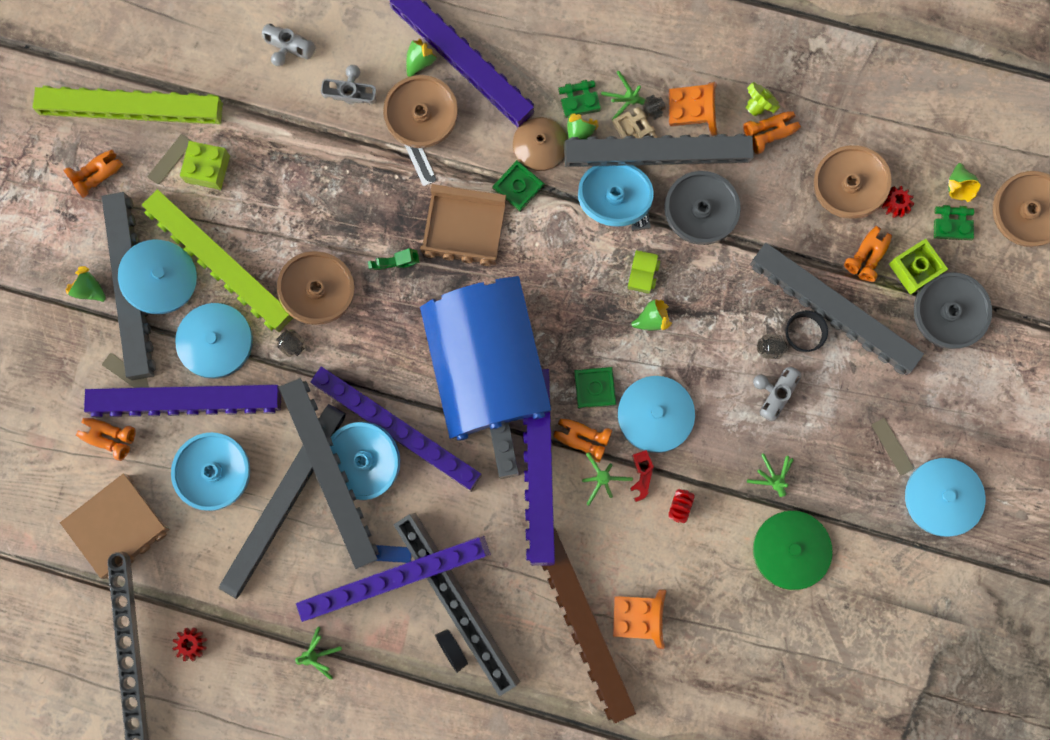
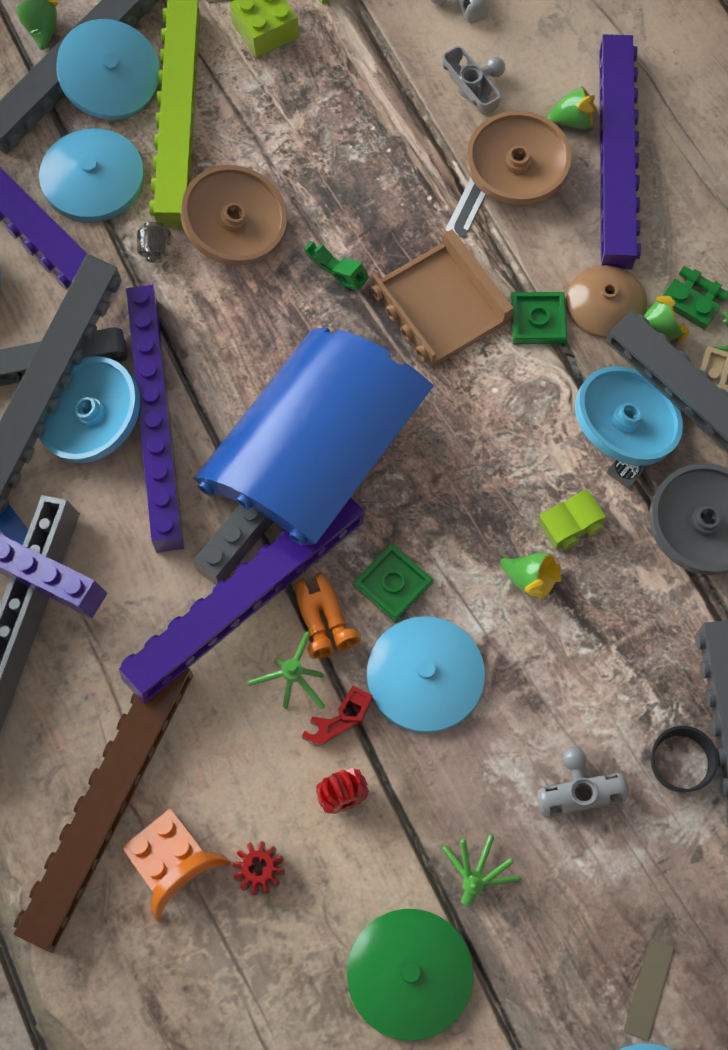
camera: 45 degrees right, 10 degrees down
(688, 575) = (248, 865): none -> red gear
(771, 346) = (627, 735): clear smoke head -> none

